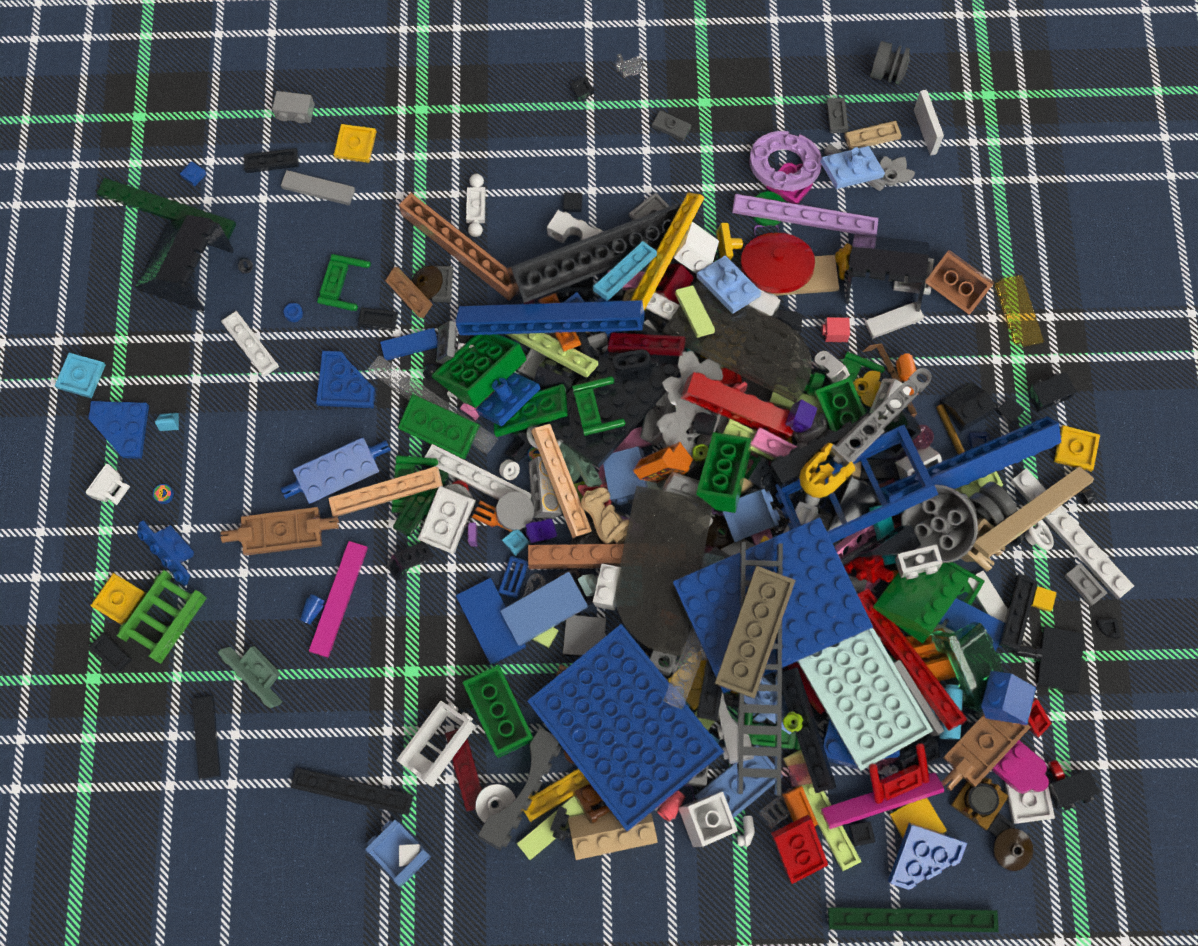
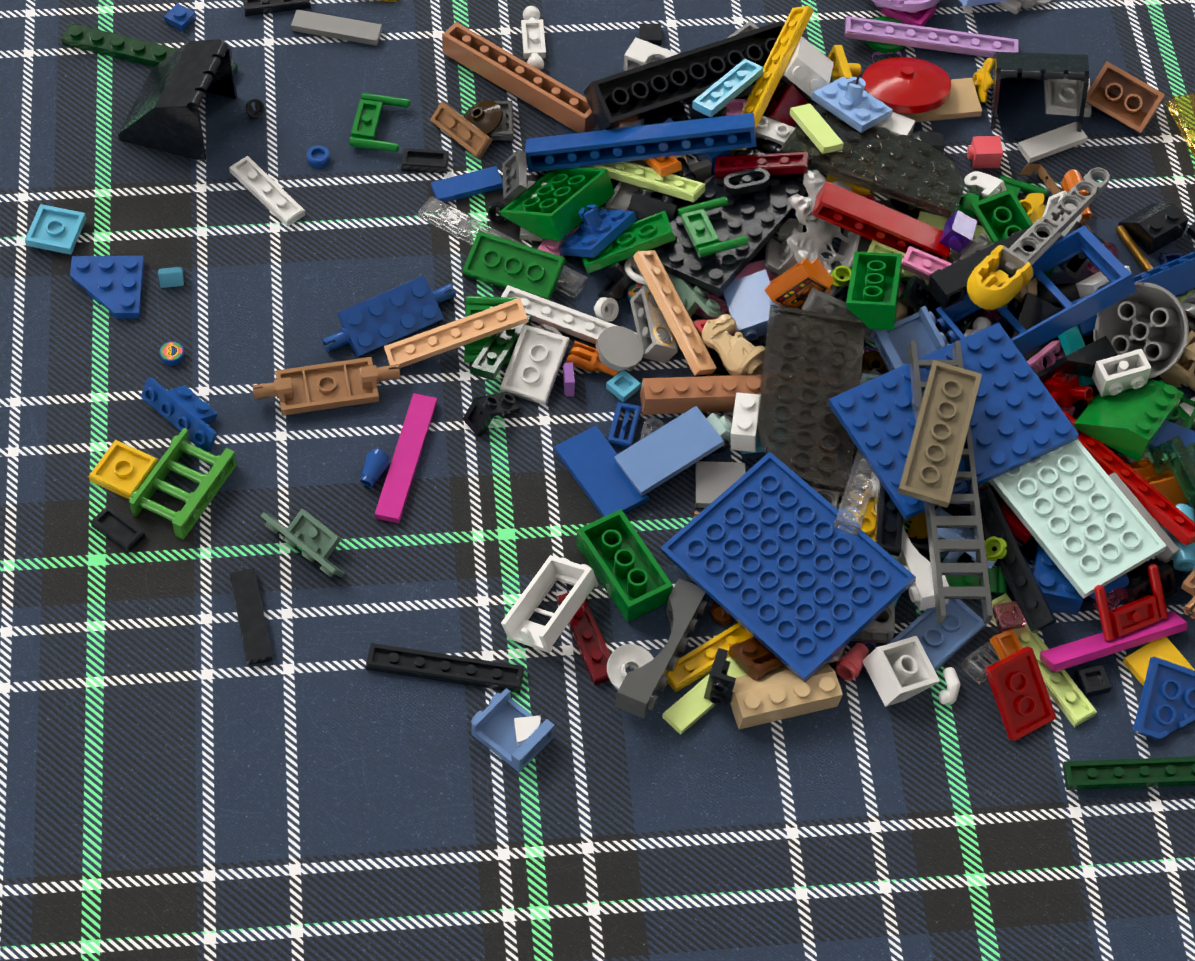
camera: 10 degrees left, 15 degrees down
(106, 484) = (98, 343): white piece -> none
(342, 383) = (389, 227): blue plate -> none
(541, 530) = (656, 369): dark purple bracket -> none
(547, 637) = (672, 488): yellowish green tile -> none
(704, 424) = (843, 245): black tile -> none

